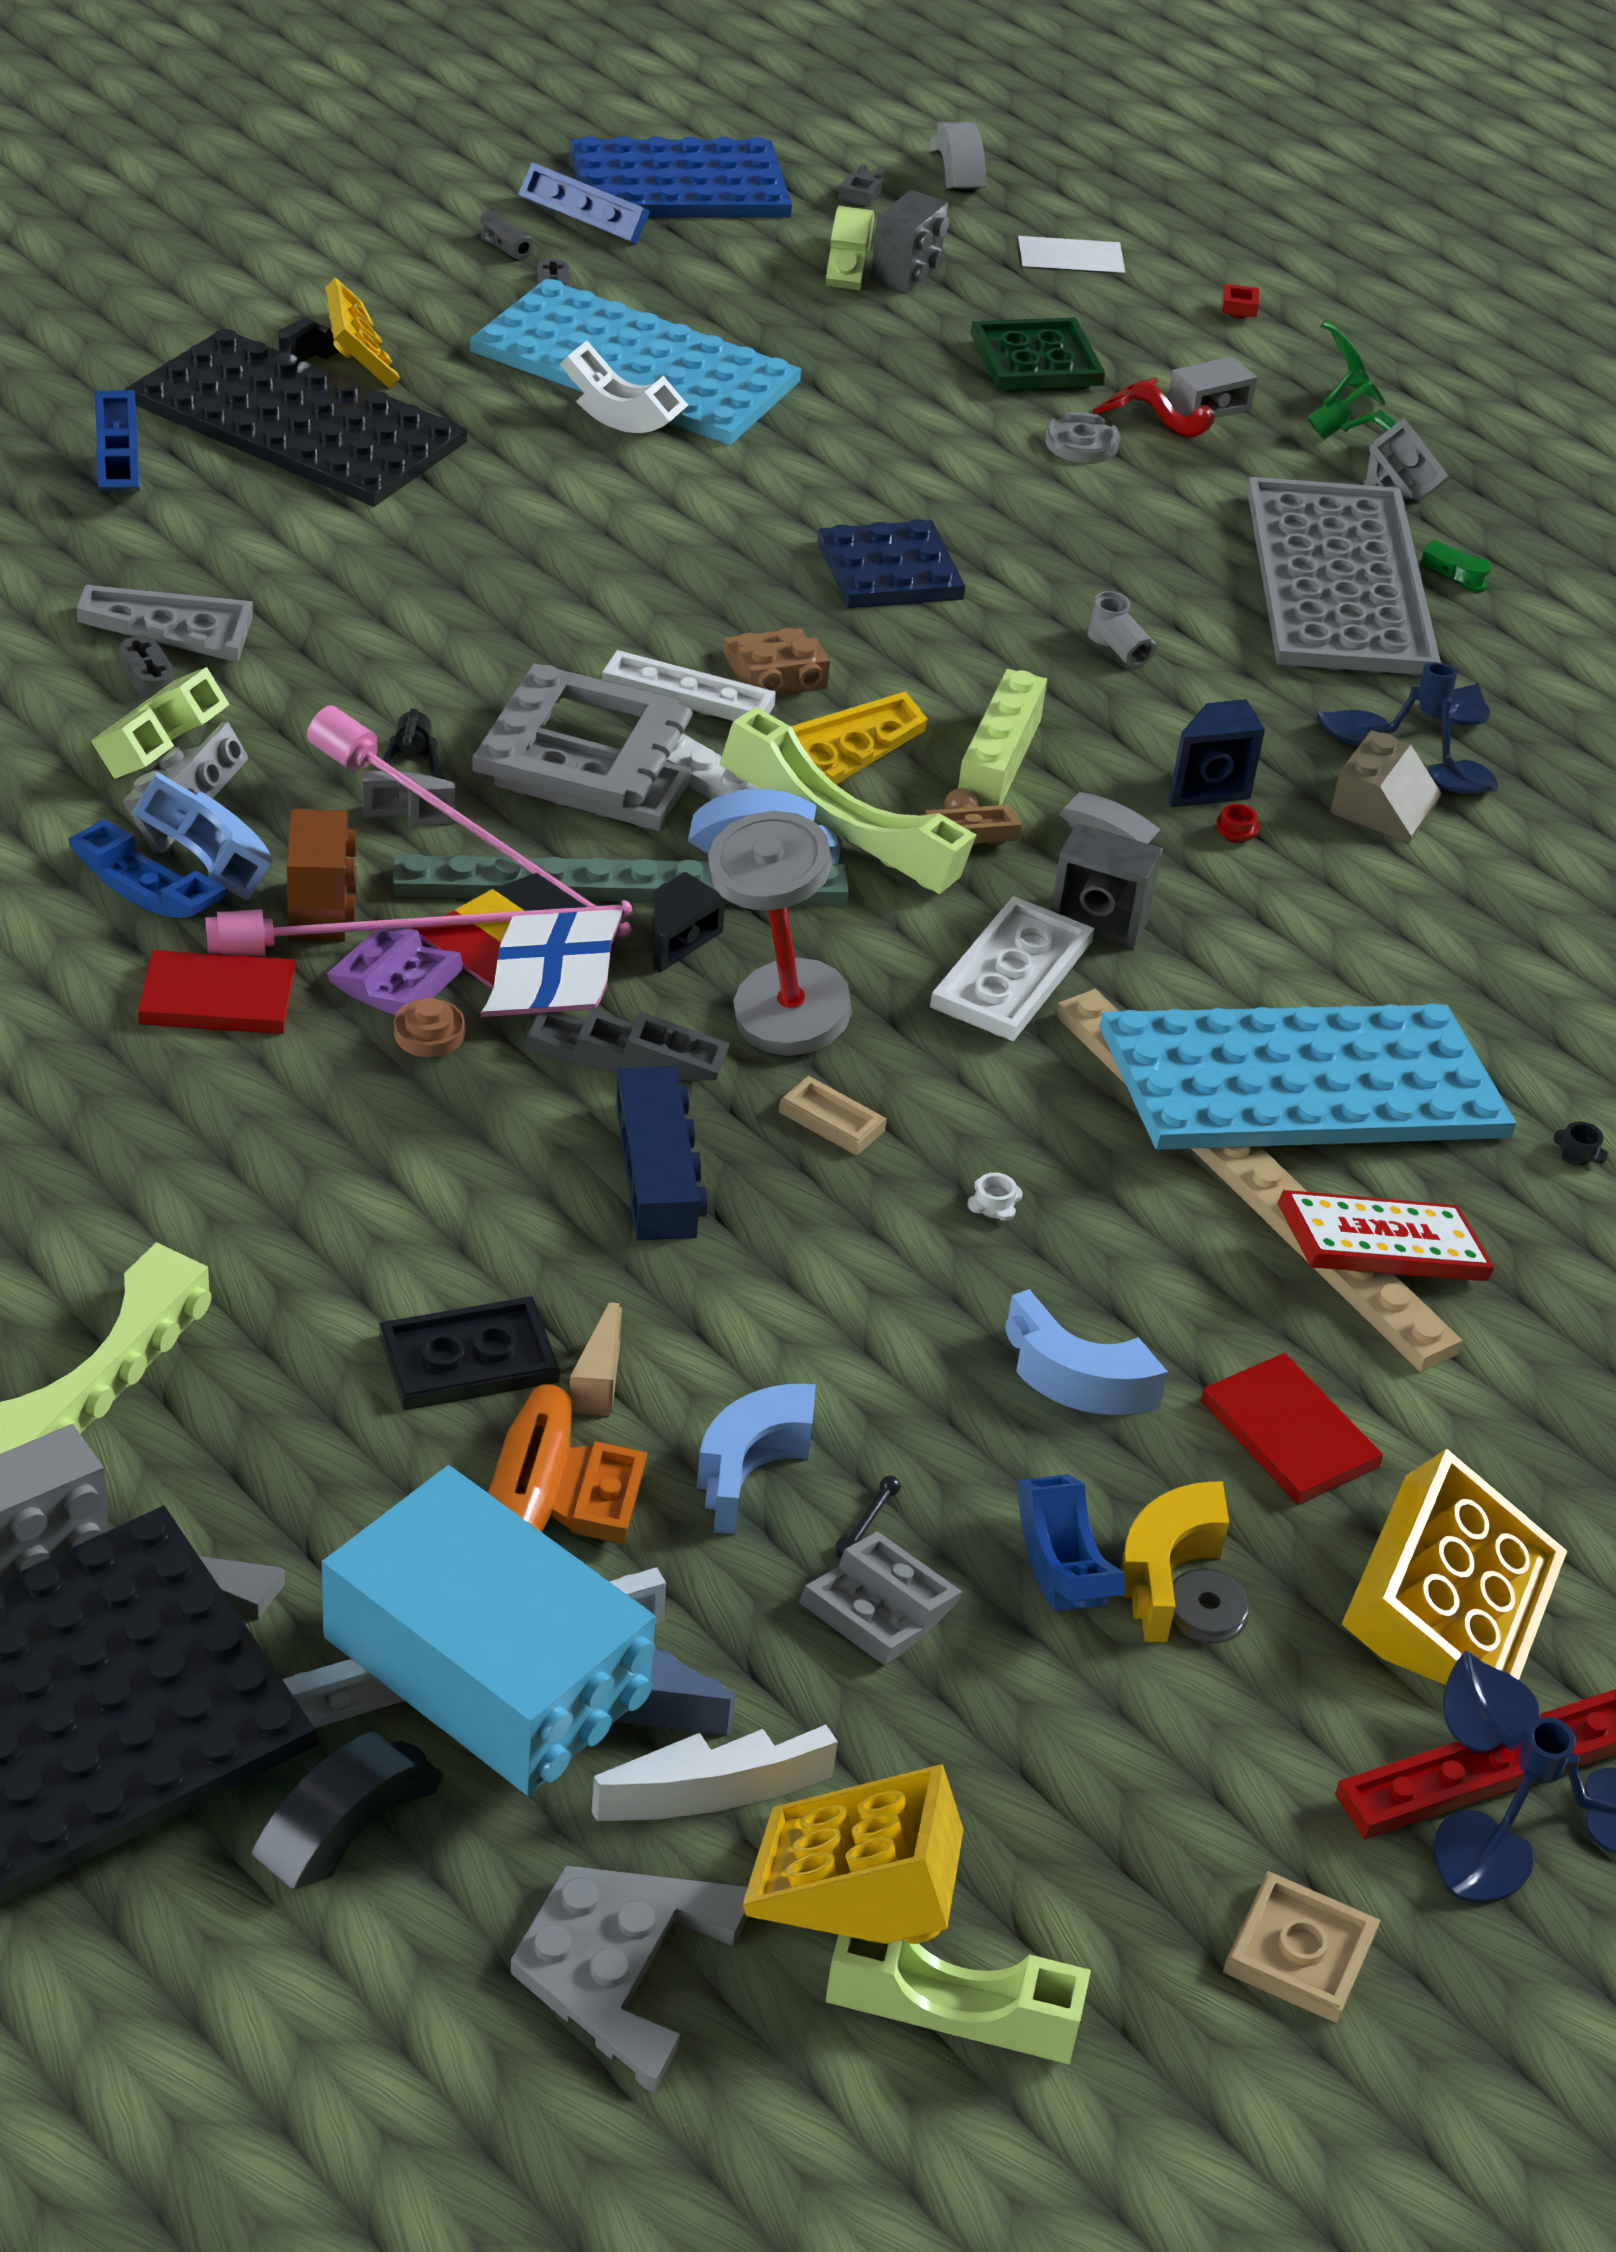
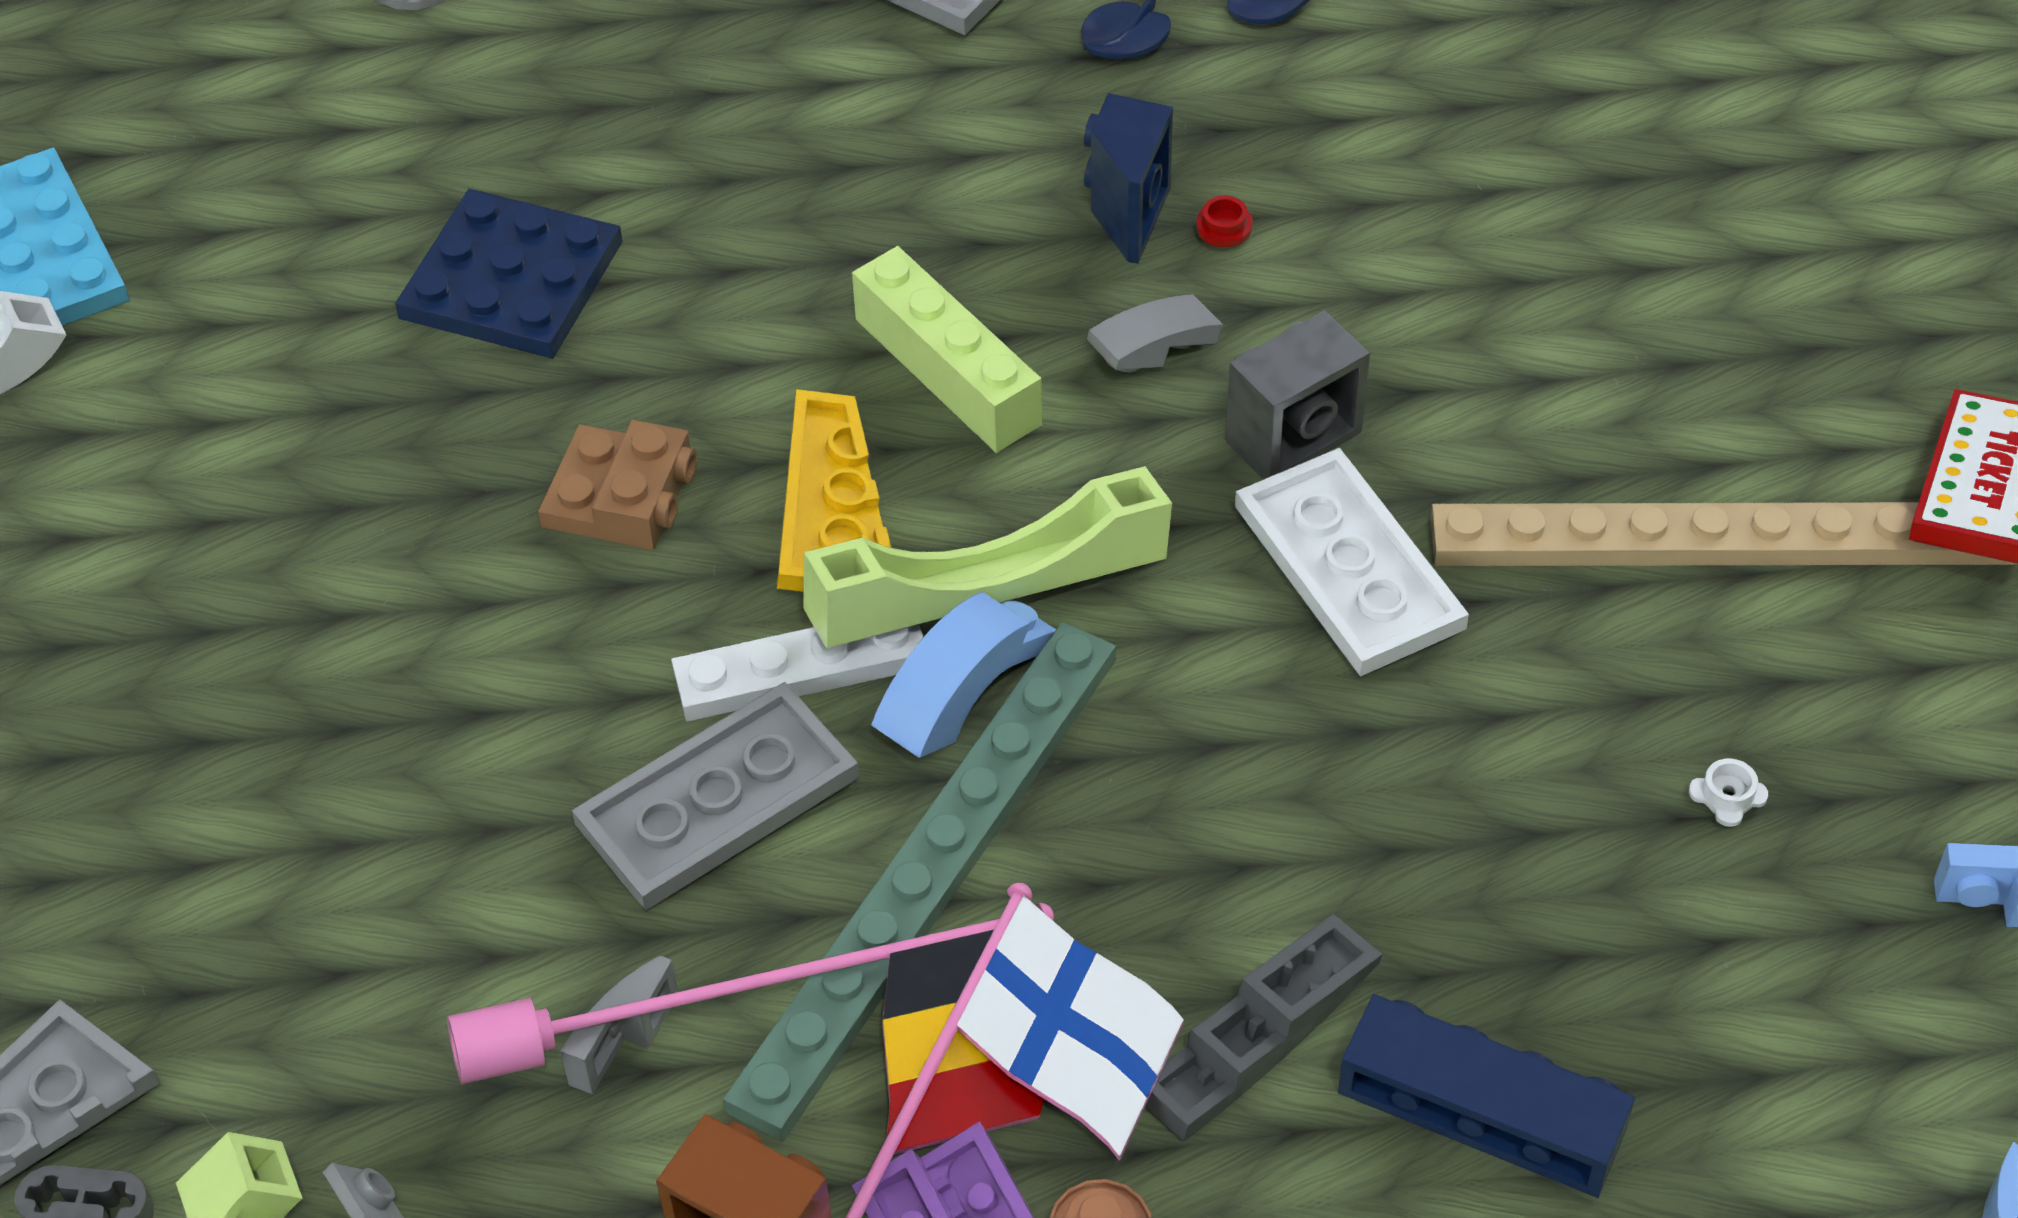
camera: 50 degrees left, 10 degrees up
(413, 738) = (495, 953): black plant -> none
(633, 770) = (584, 818): light grey hinge -> none
(684, 918) = (1062, 844): black slope -> none
(693, 688) = (611, 602): white plate -> none
(768, 866) = (1305, 713): light grey piece -> none
(832, 1115) = (1495, 875): tan tile -> none
(990, 823) = (1070, 459): medium nougat plate -> none
(1115, 628) = (799, 133): light grey piece -> none
(1304, 1076) = (1693, 407): medium azure plate -> none
(1385, 787) = (1252, 69): dark tan slope -> none
(1581, 1144) = (1909, 236): black plate -> none

